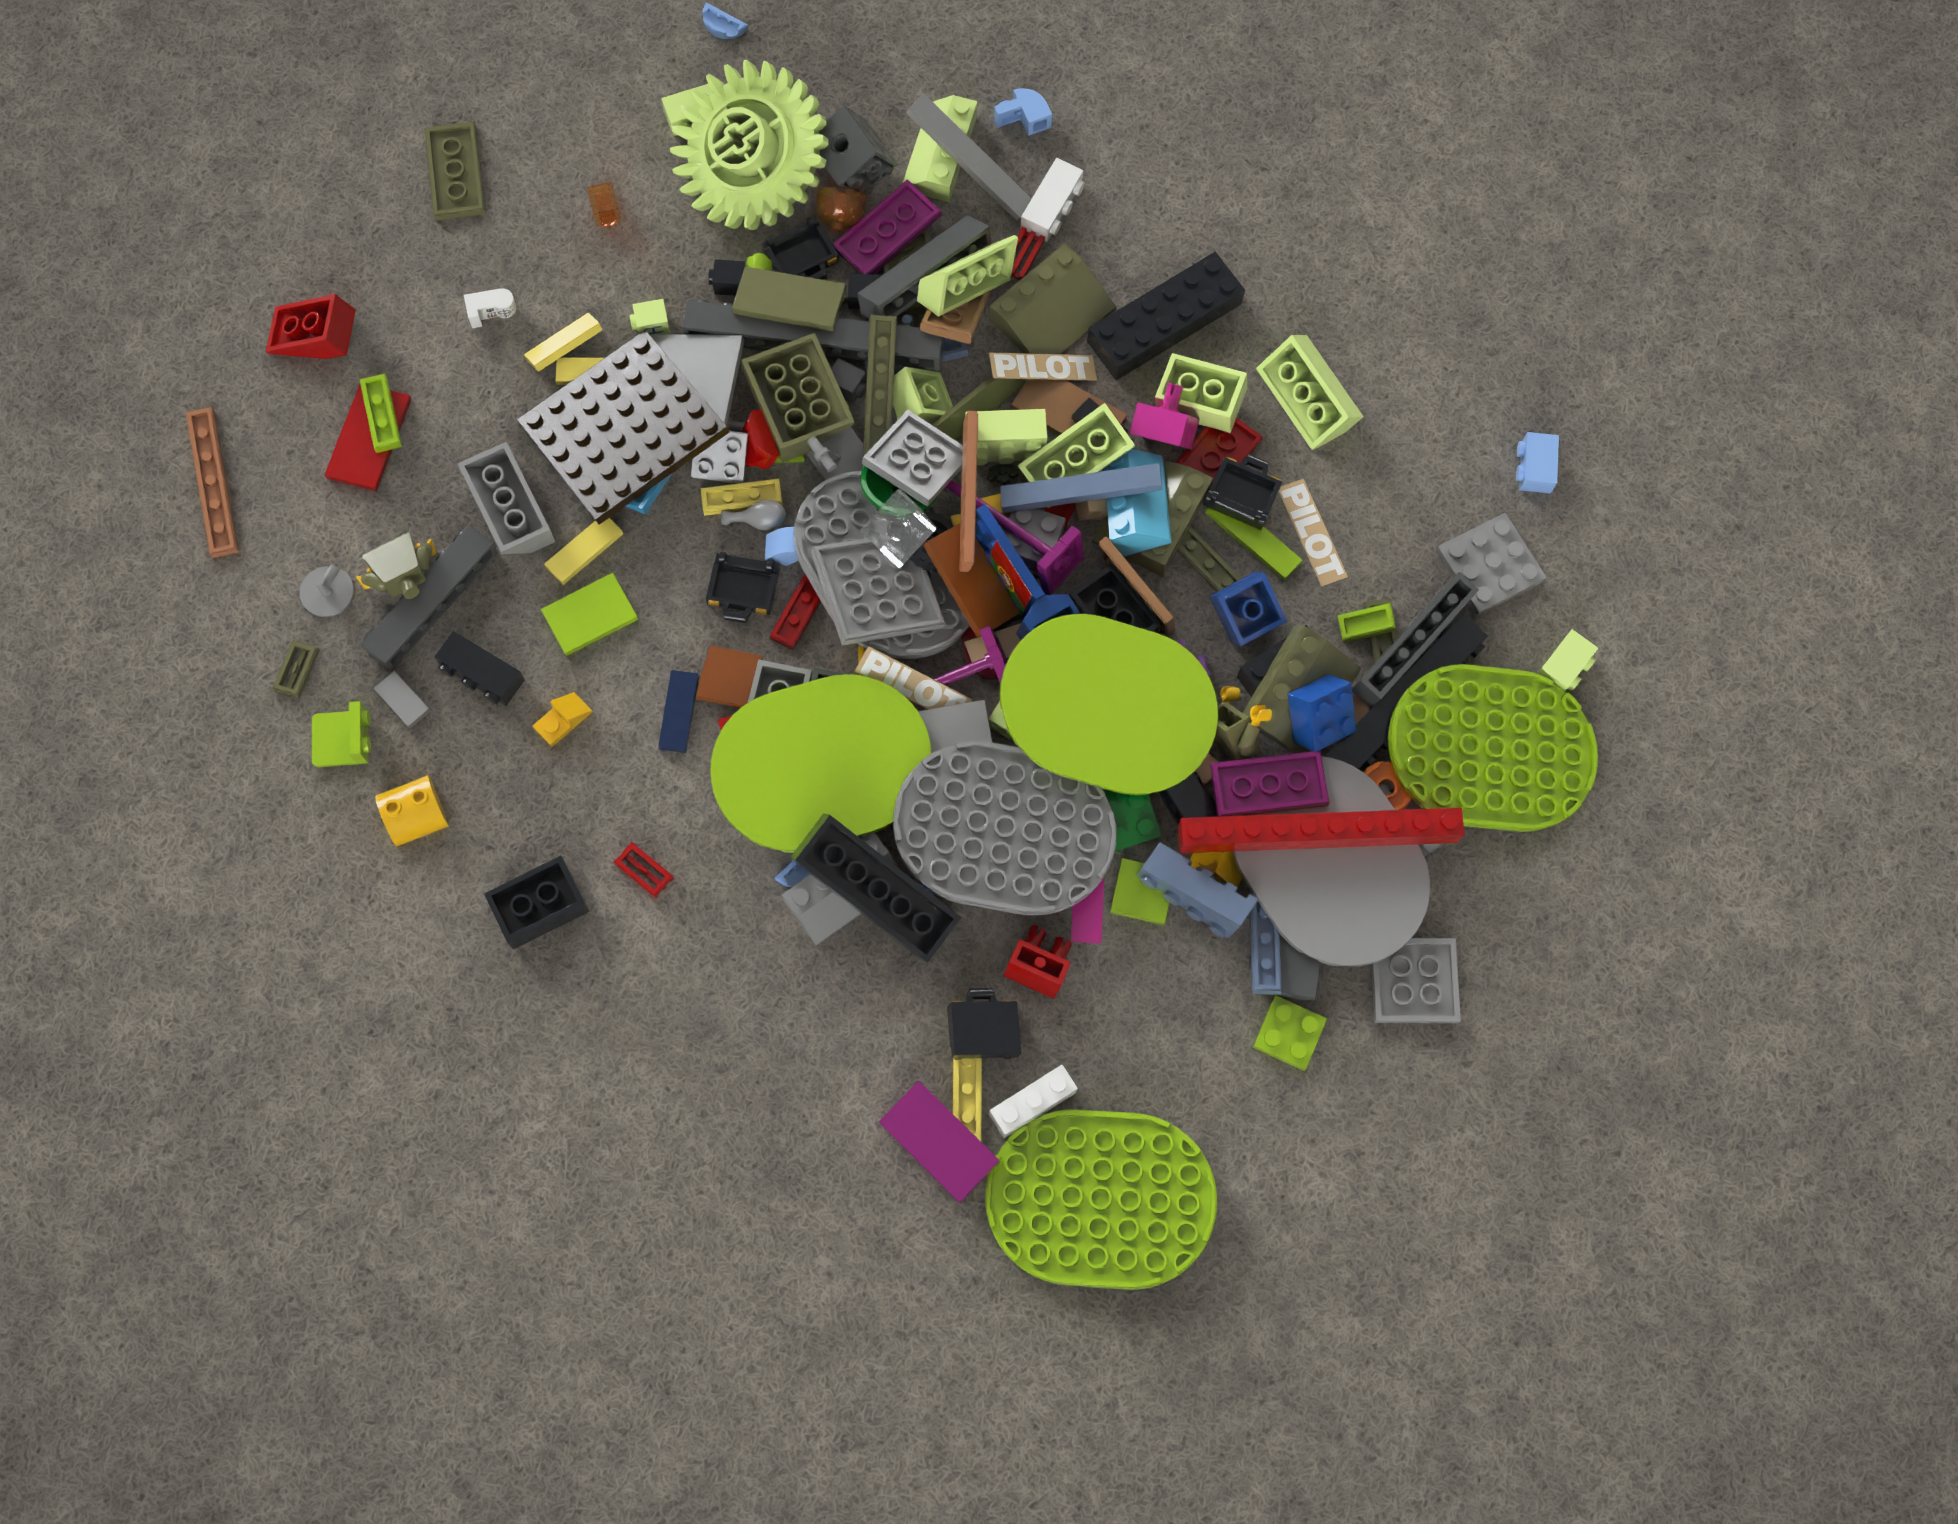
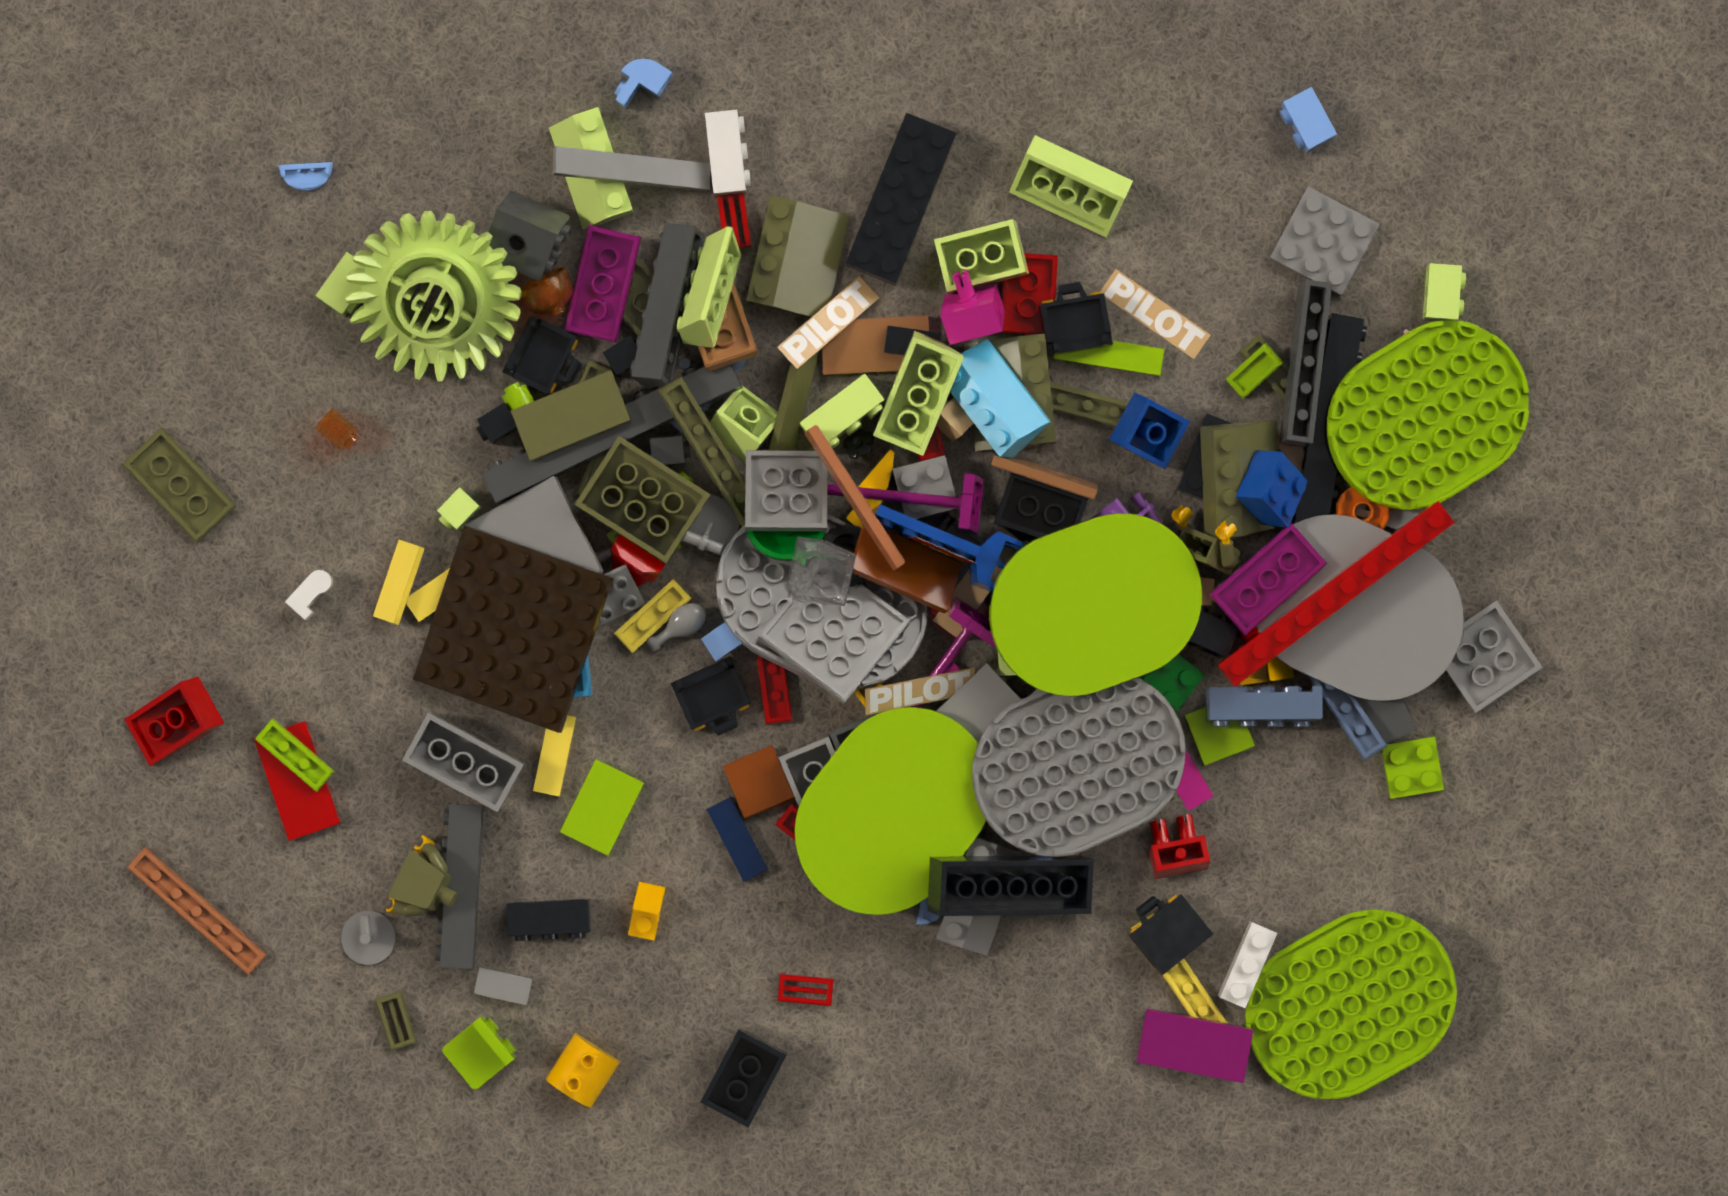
camera: 30 degrees left, 15 degrees up
(1081, 488) = (943, 425): sand blue tile -> none

